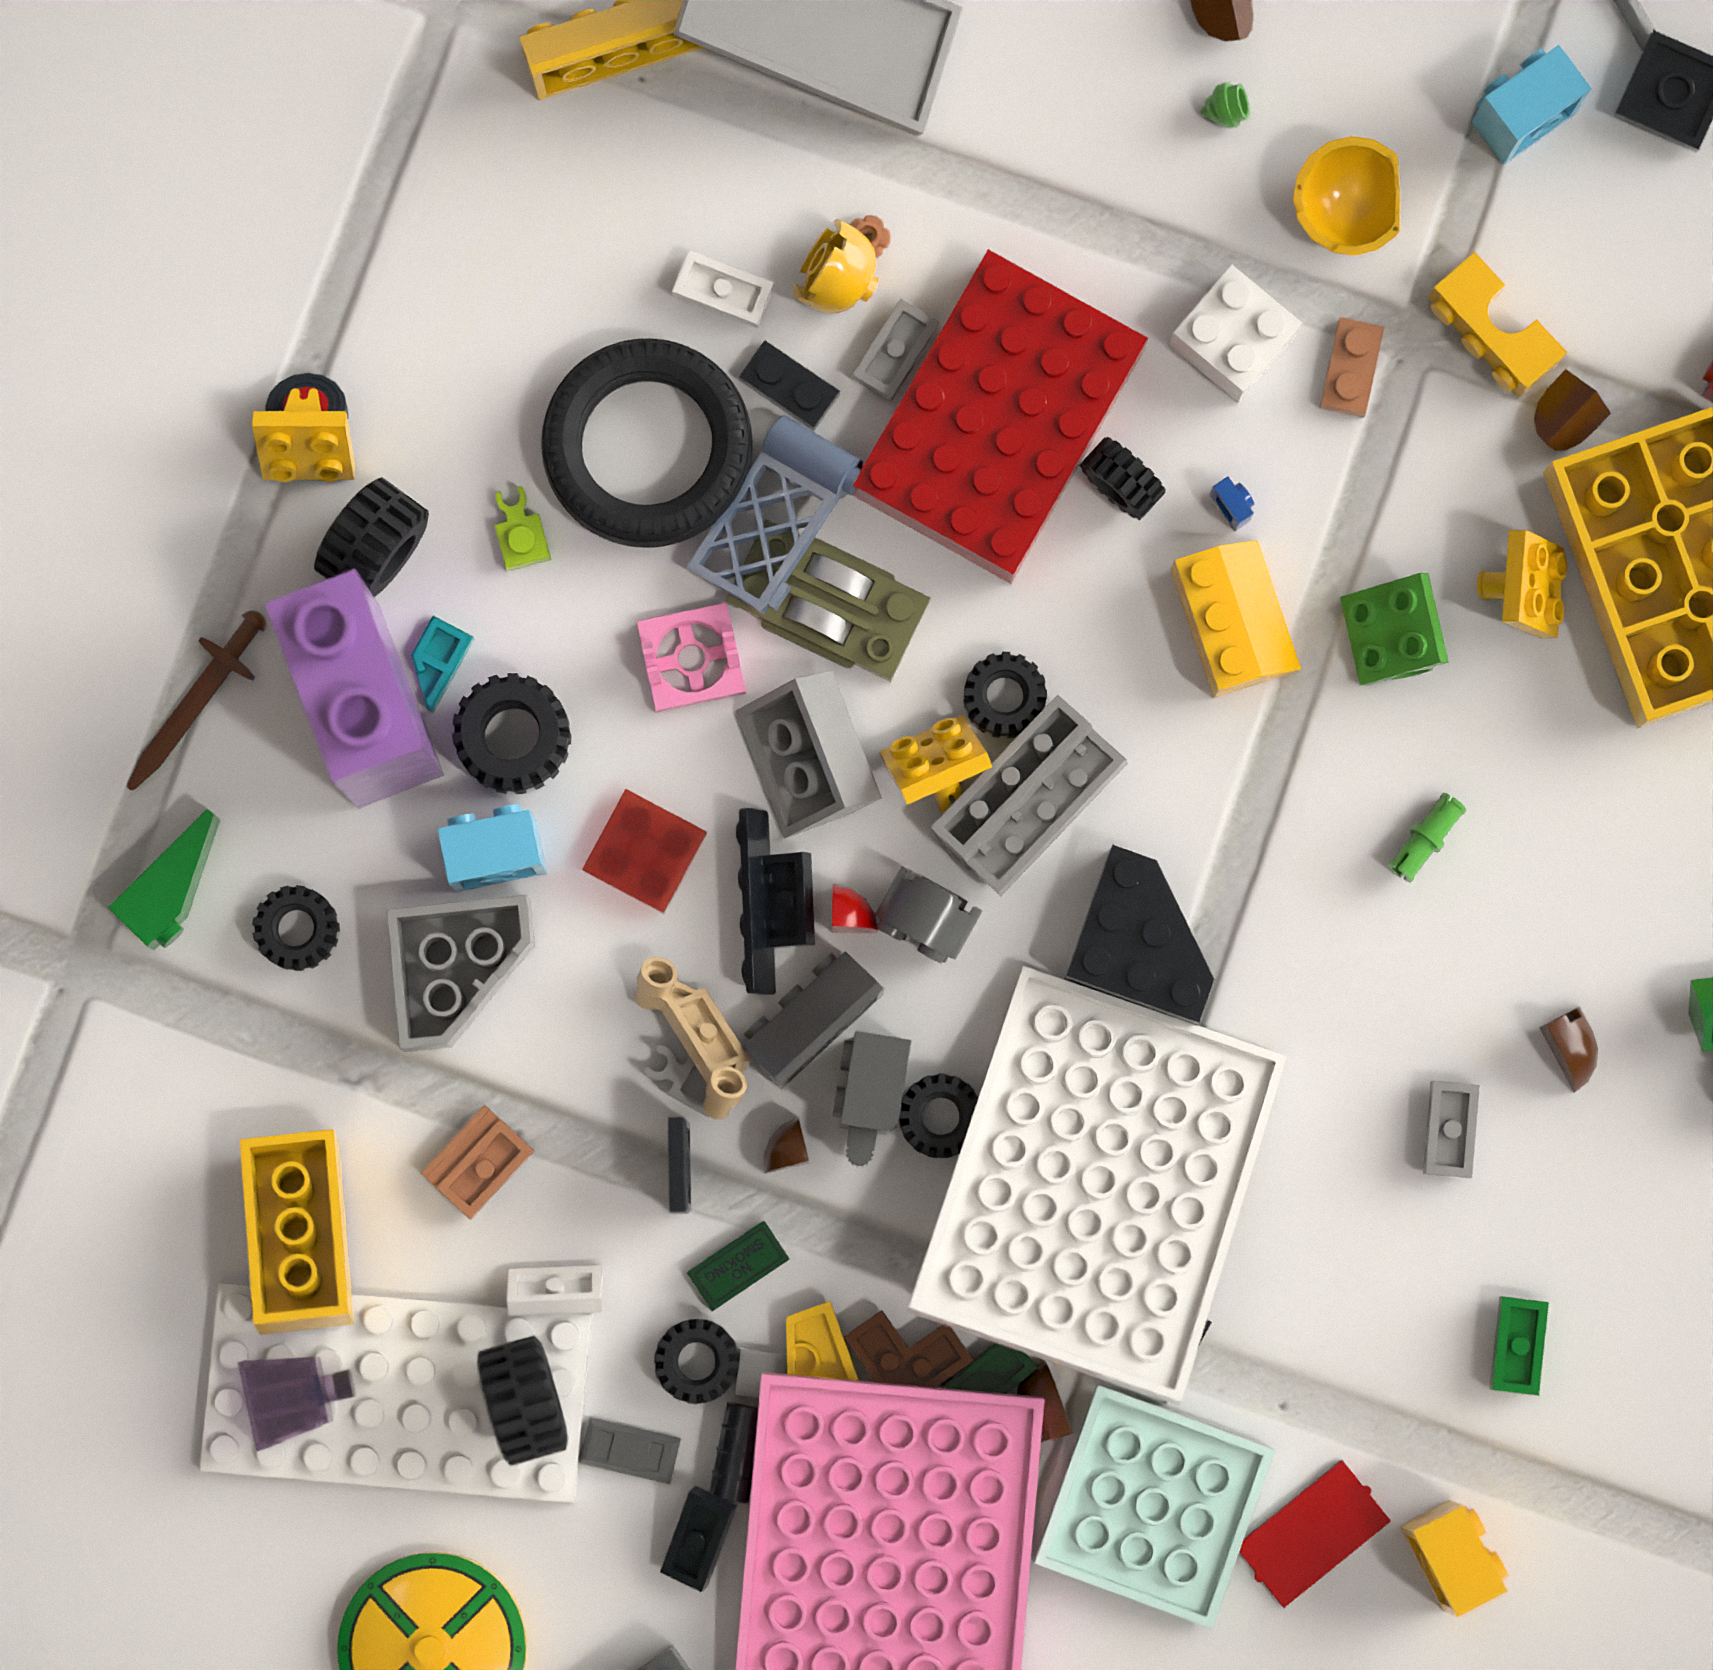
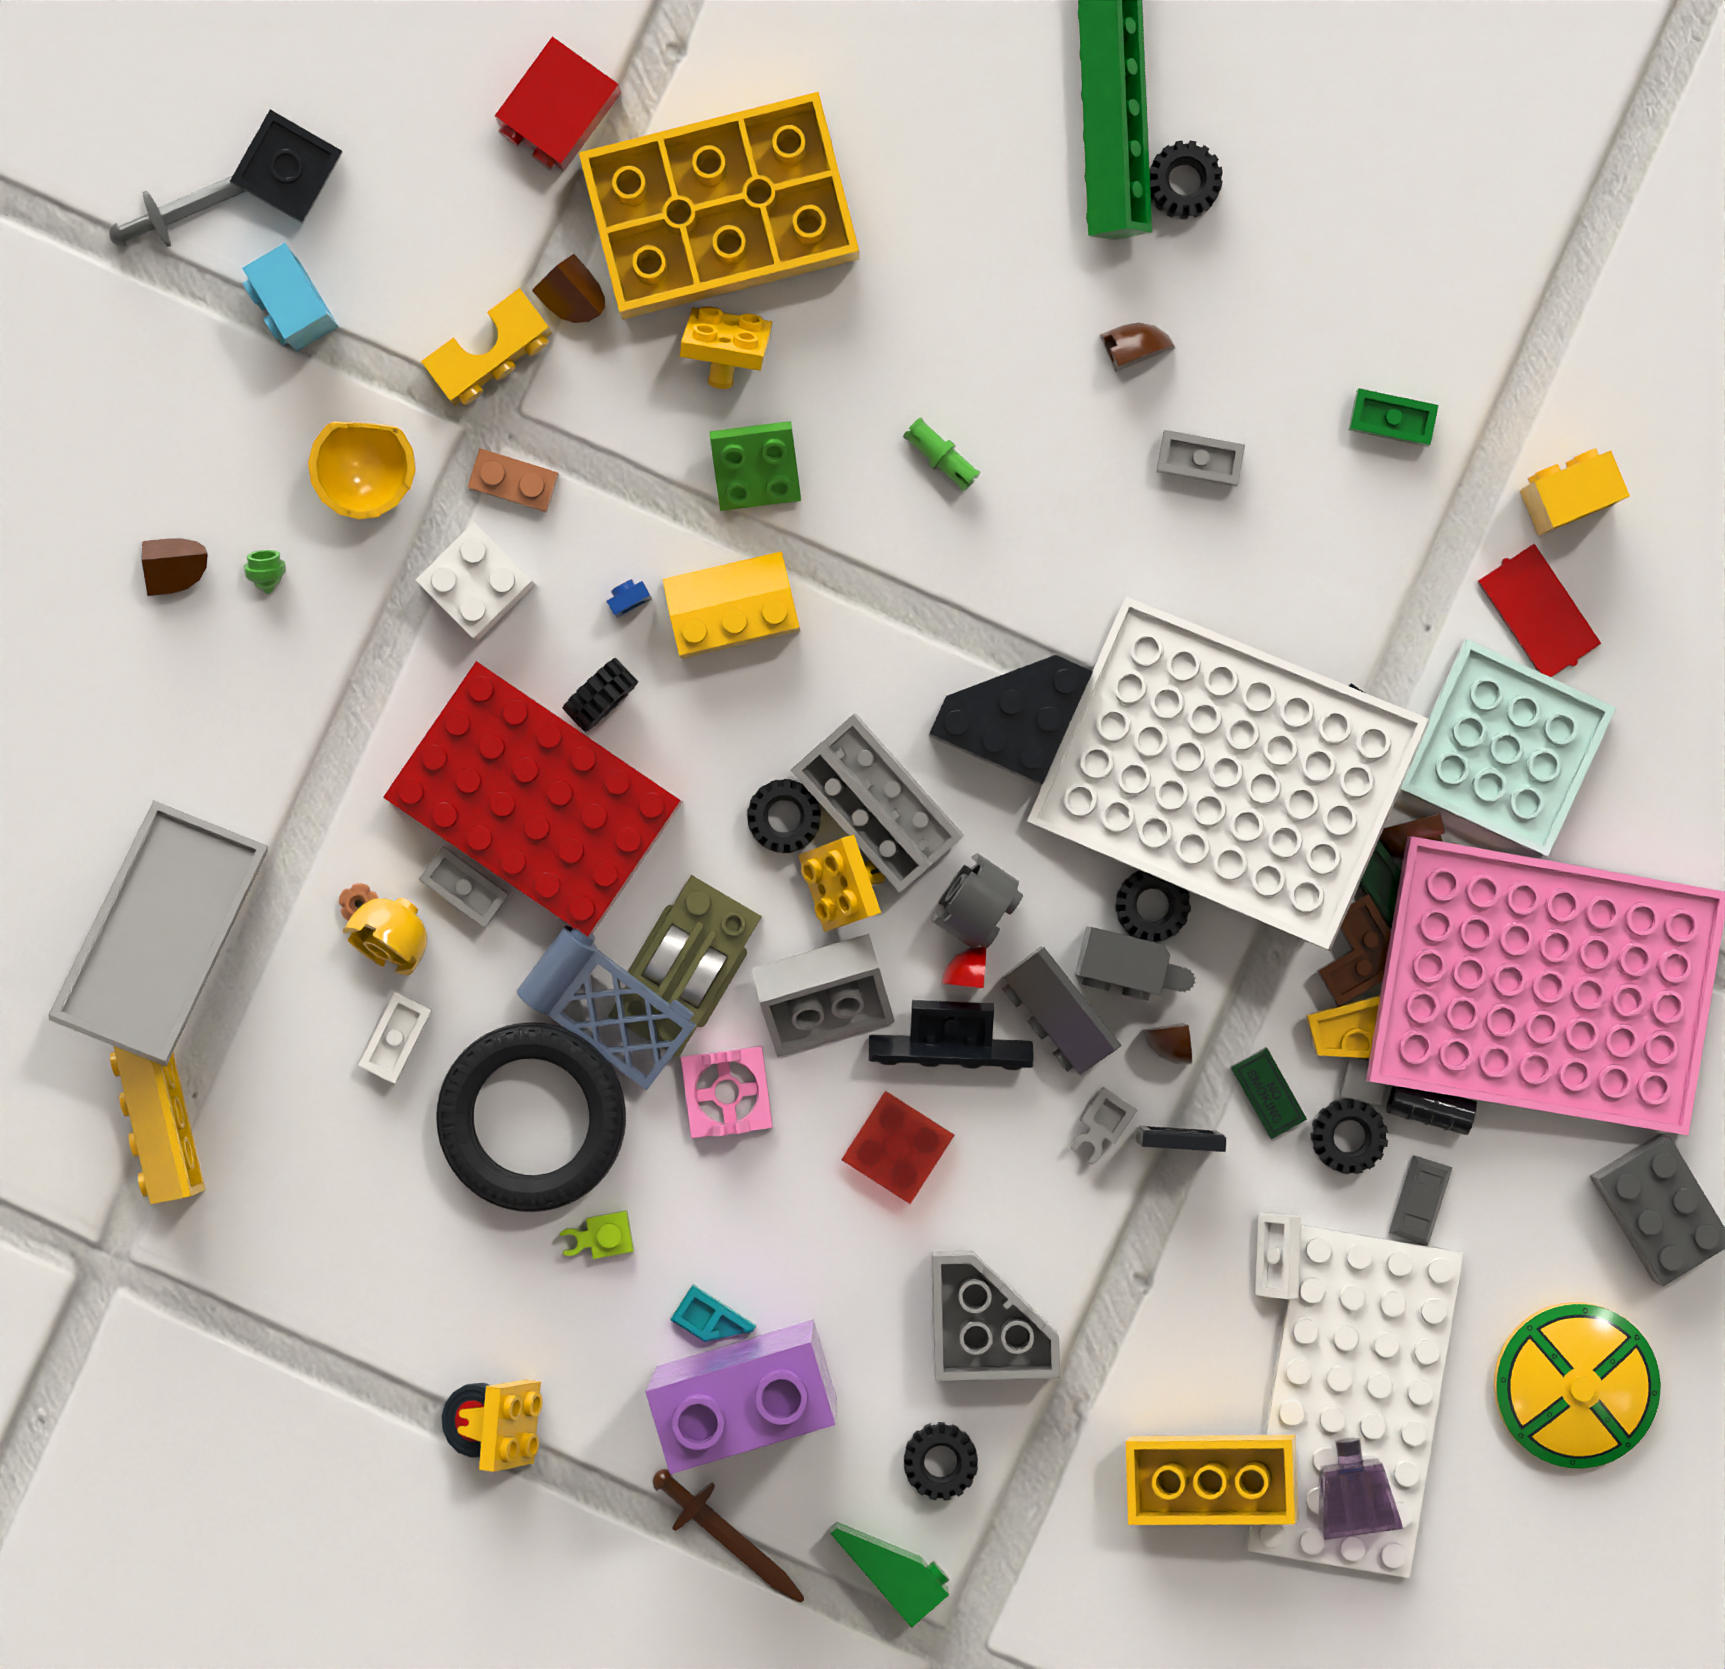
camera: 85 degrees left, 5 degrees up
(373, 536) = (601, 1370): black tyre -> none
(477, 1162) = (1160, 1315): nougat plate -> none
(491, 848) = (888, 1283): medium azure brick -> none
(498, 696) = (776, 1293): black tyre -> none
(522, 1400) = (1378, 1293): black tyre -> none
(698, 1538) = (1504, 1147): black plate -> none
(700, 1031) = (1063, 1110): tan plate -> none
(789, 385) = (487, 984): black plate -> none

